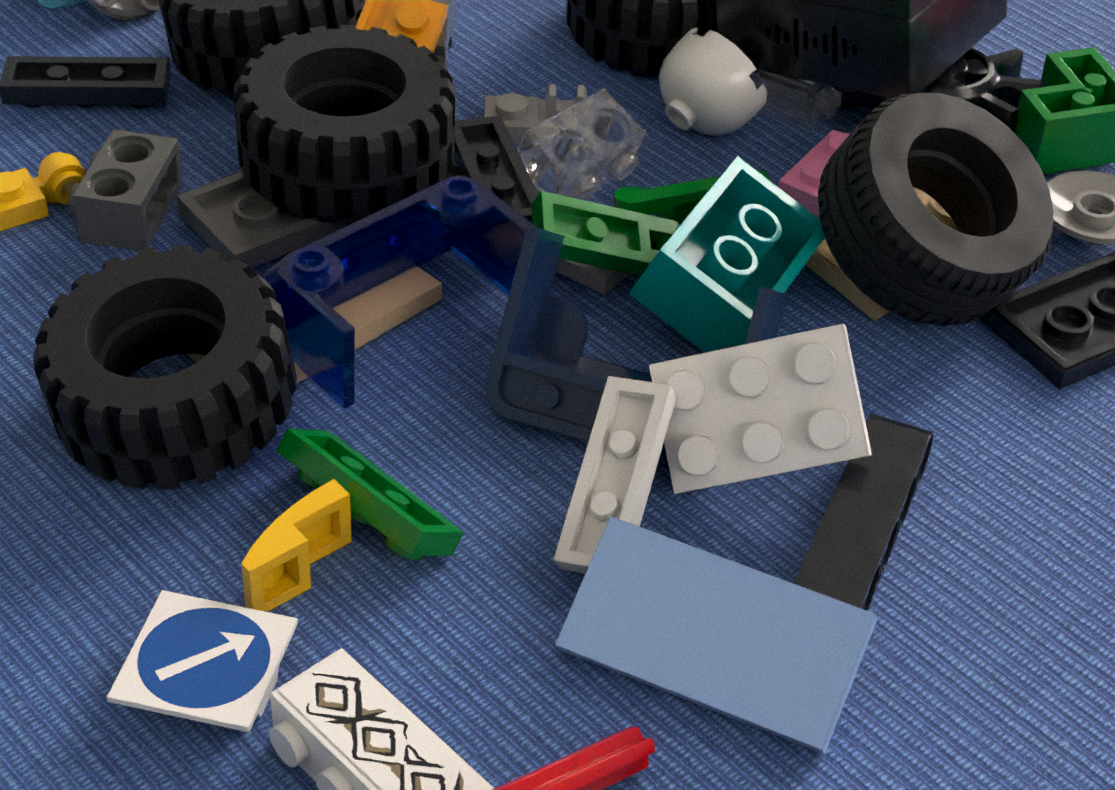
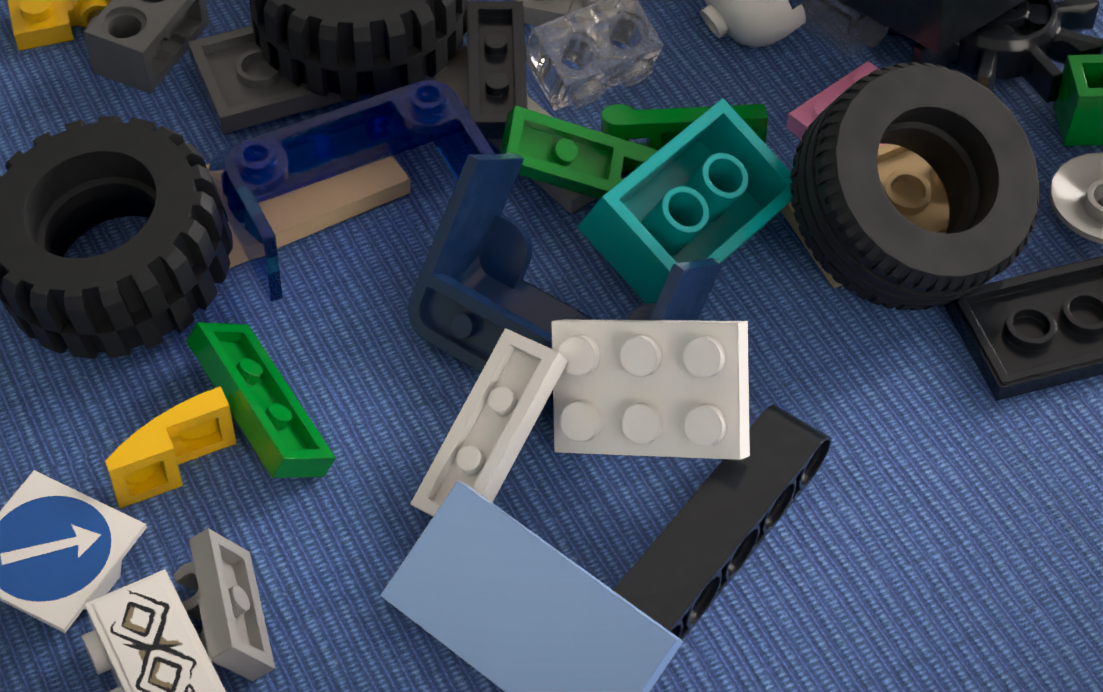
camera: 15 degrees right, 10 degrees up
(403, 668) = (227, 605): none -> light grey plate

